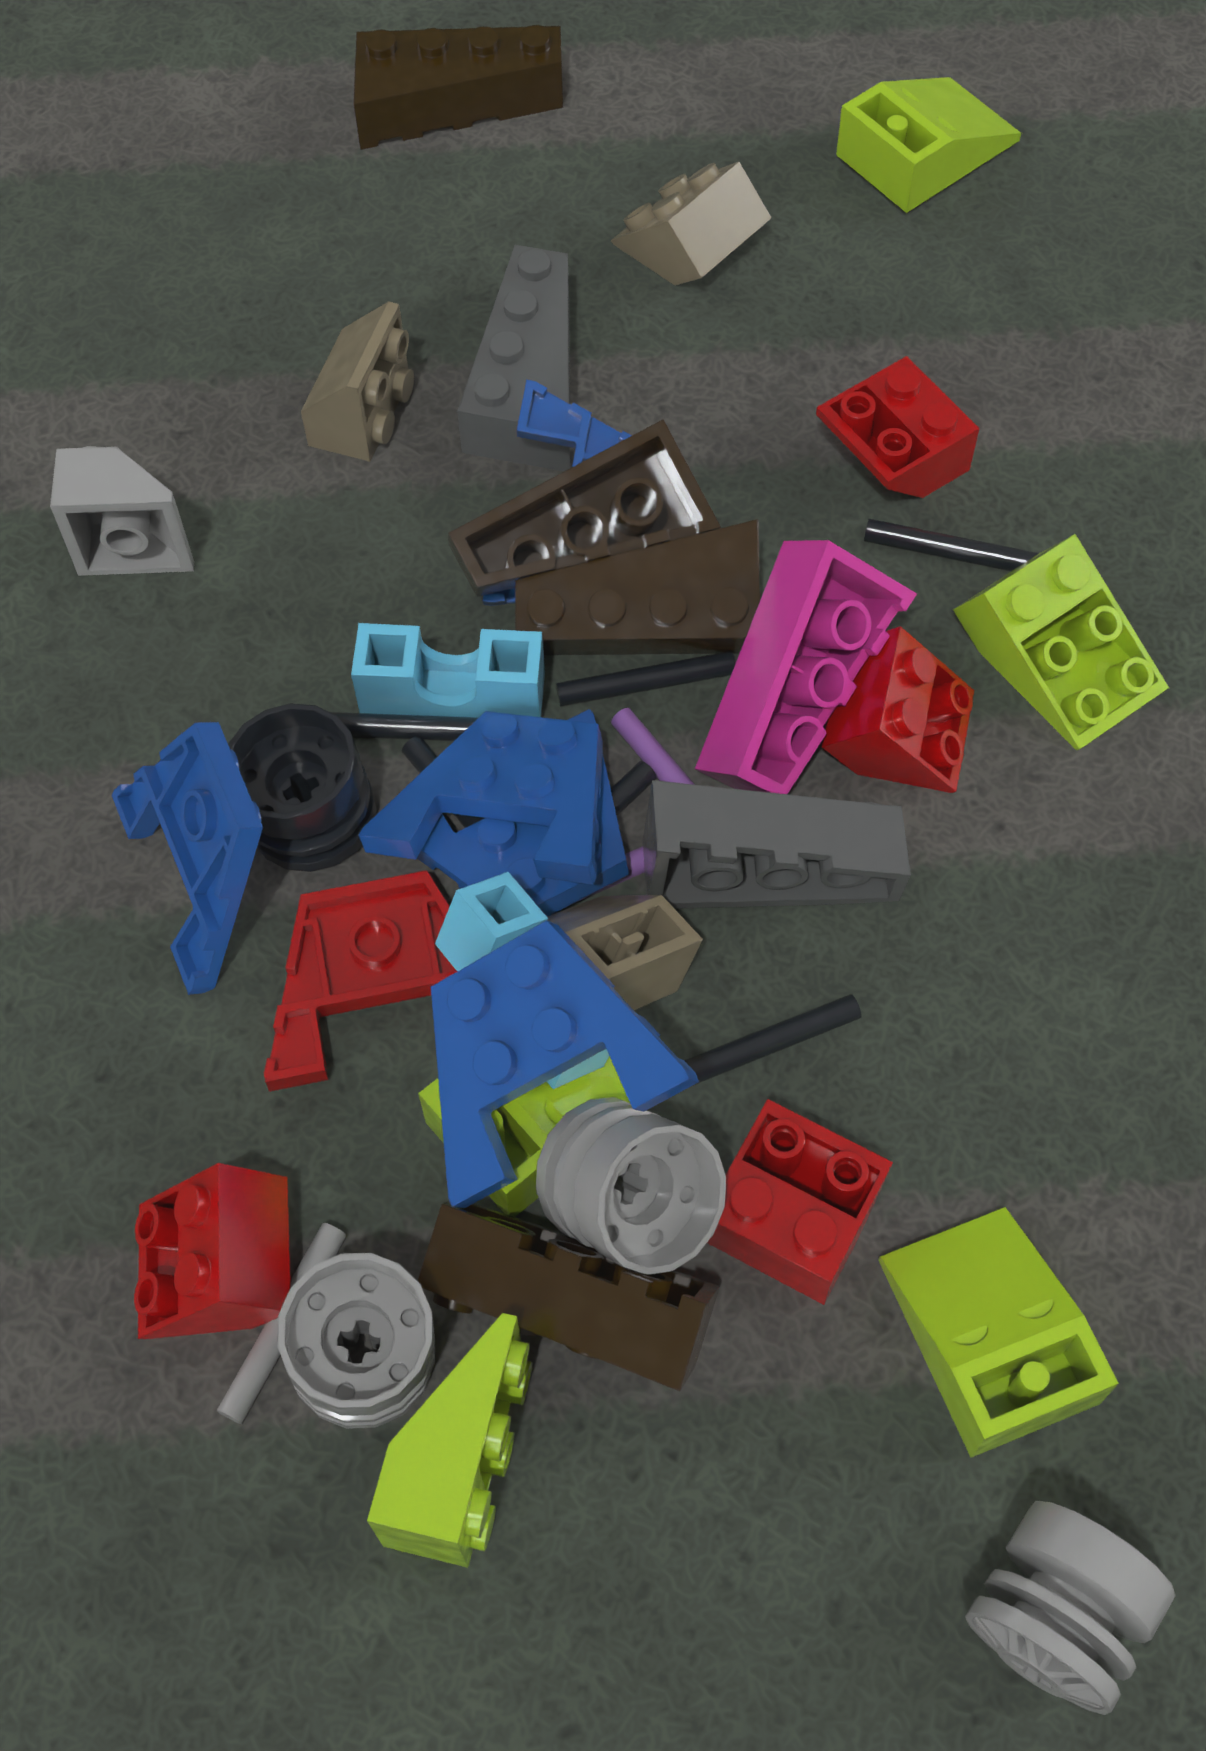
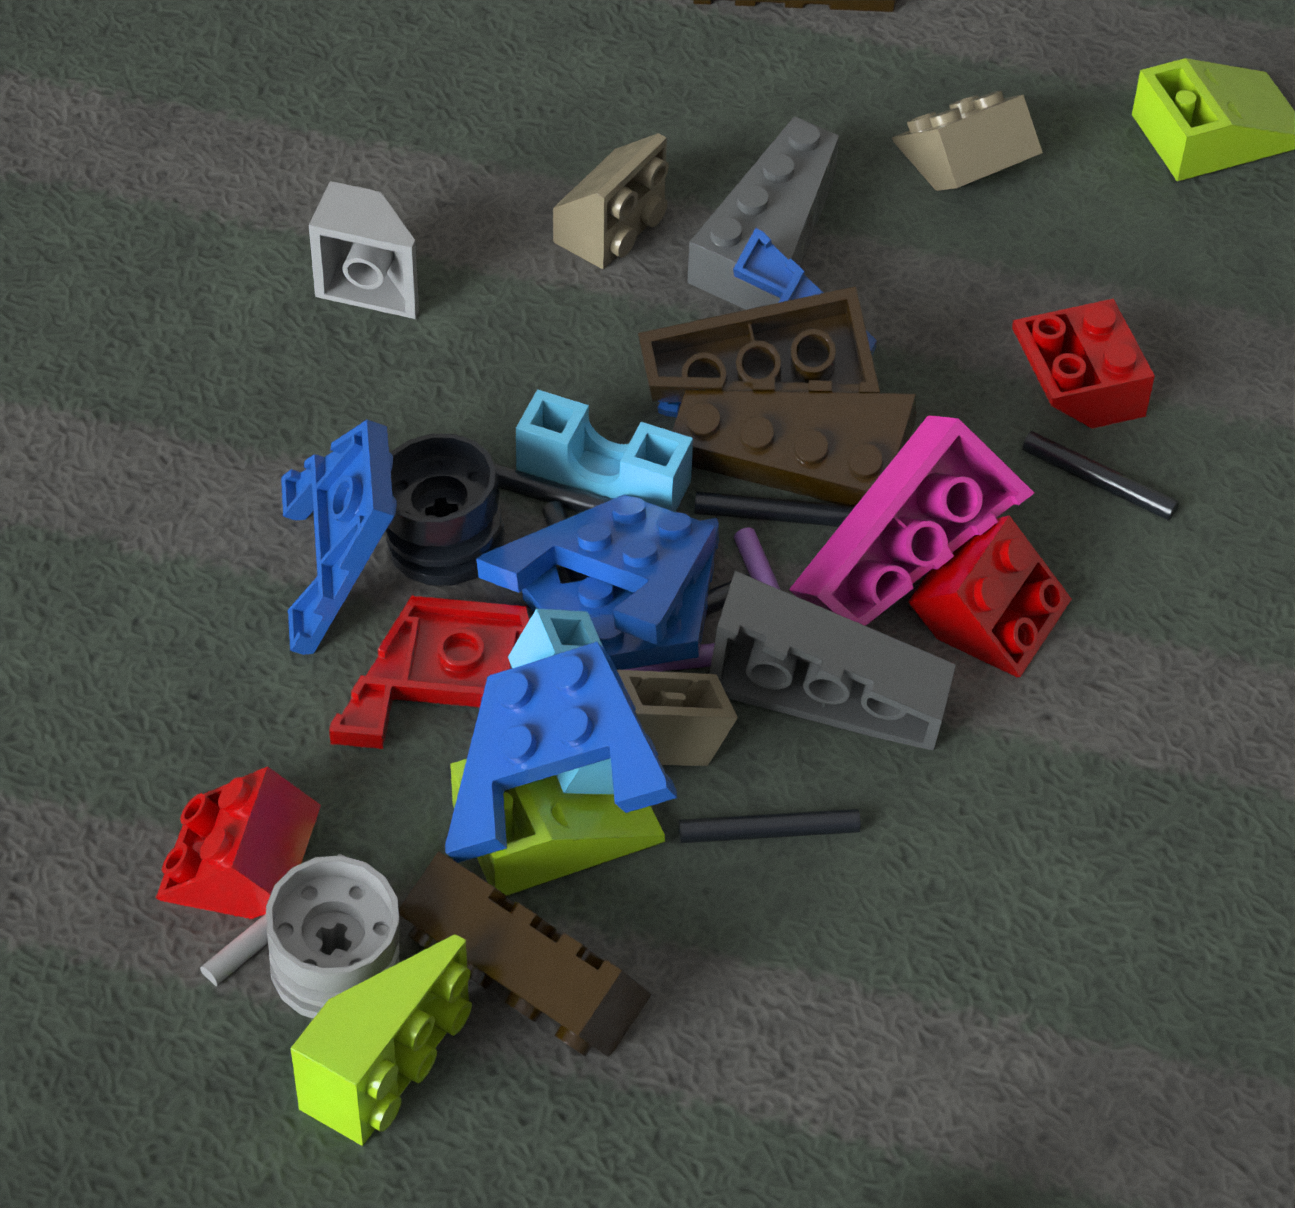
camera: 15 degrees right, 10 degrees down
(631, 1185) = (631, 885): light grey wheel -> none
(797, 1200) = (738, 947): red slope -> none
(997, 1331) = (874, 1100): lime slope -> none
(1063, 643) = (1165, 577): lime slope -> none

